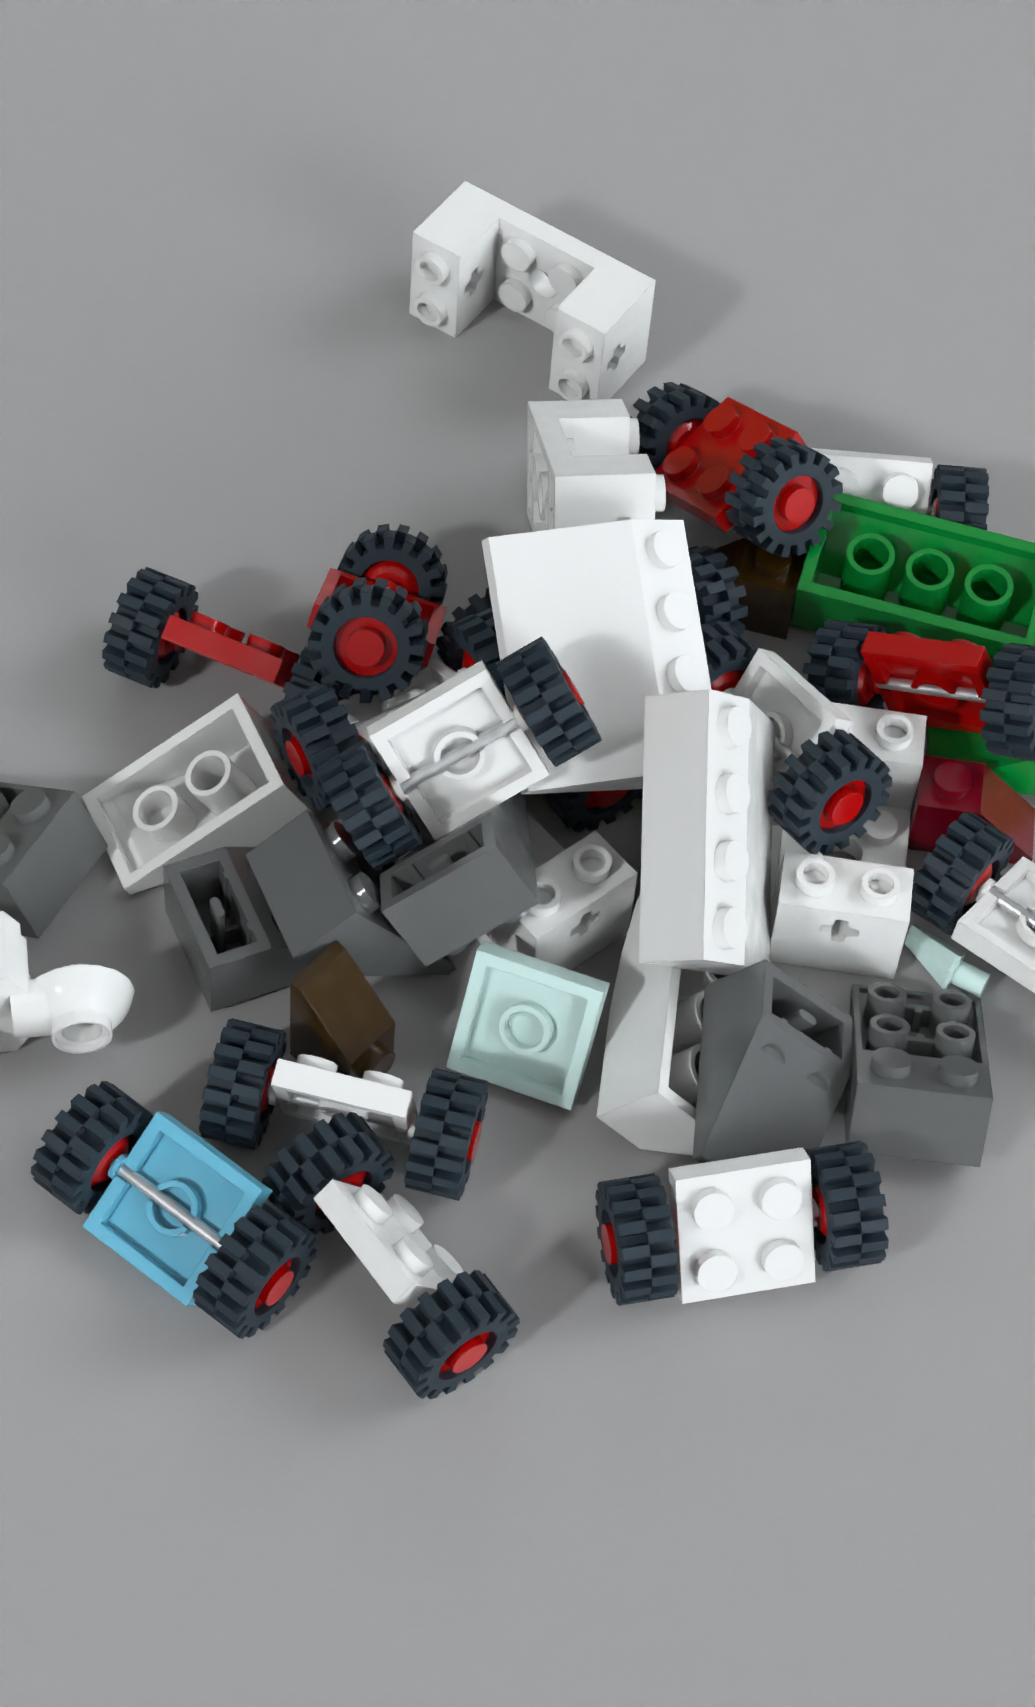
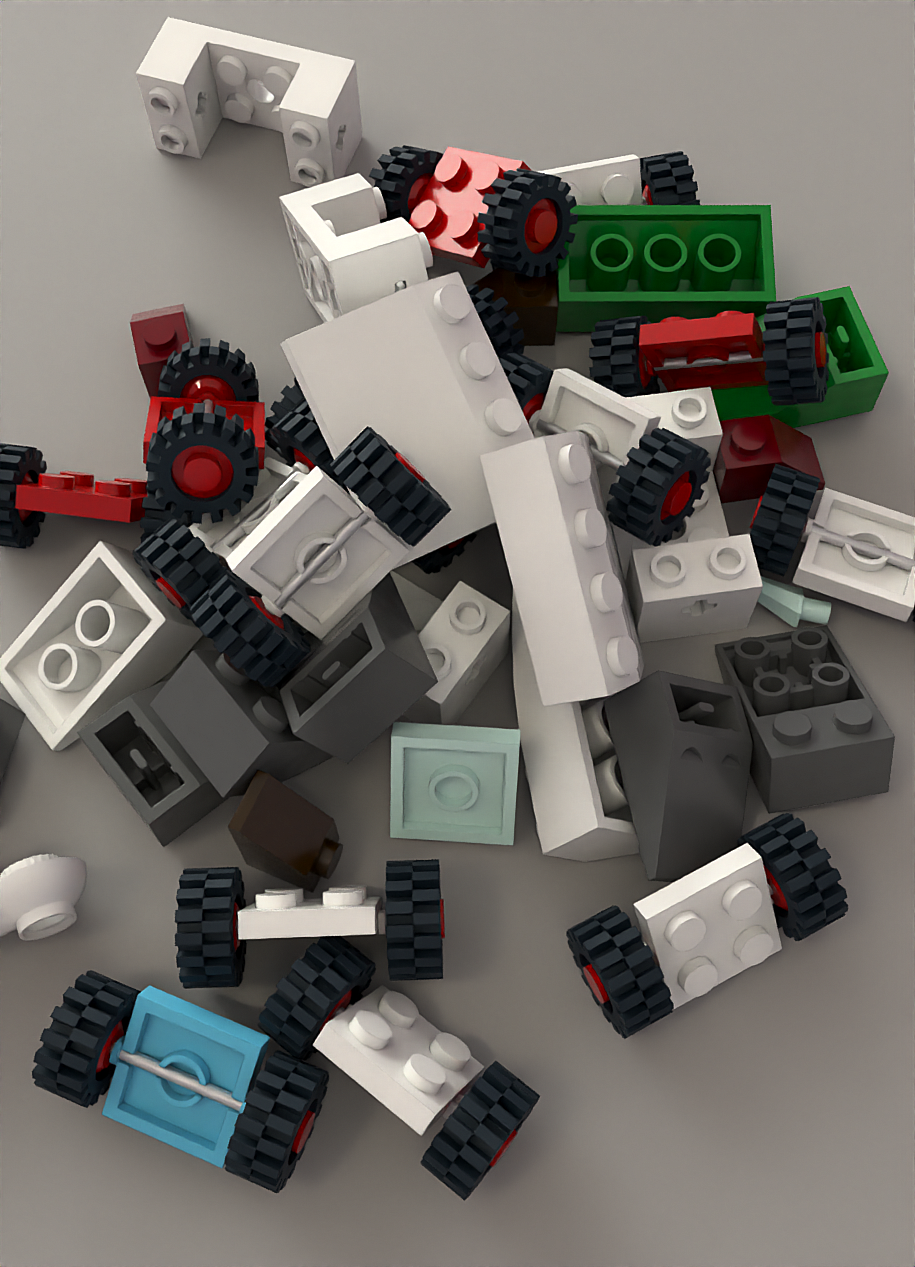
camera: 10 degrees left, 10 degrees up
(350, 513) = (155, 337): none -> dark red slope

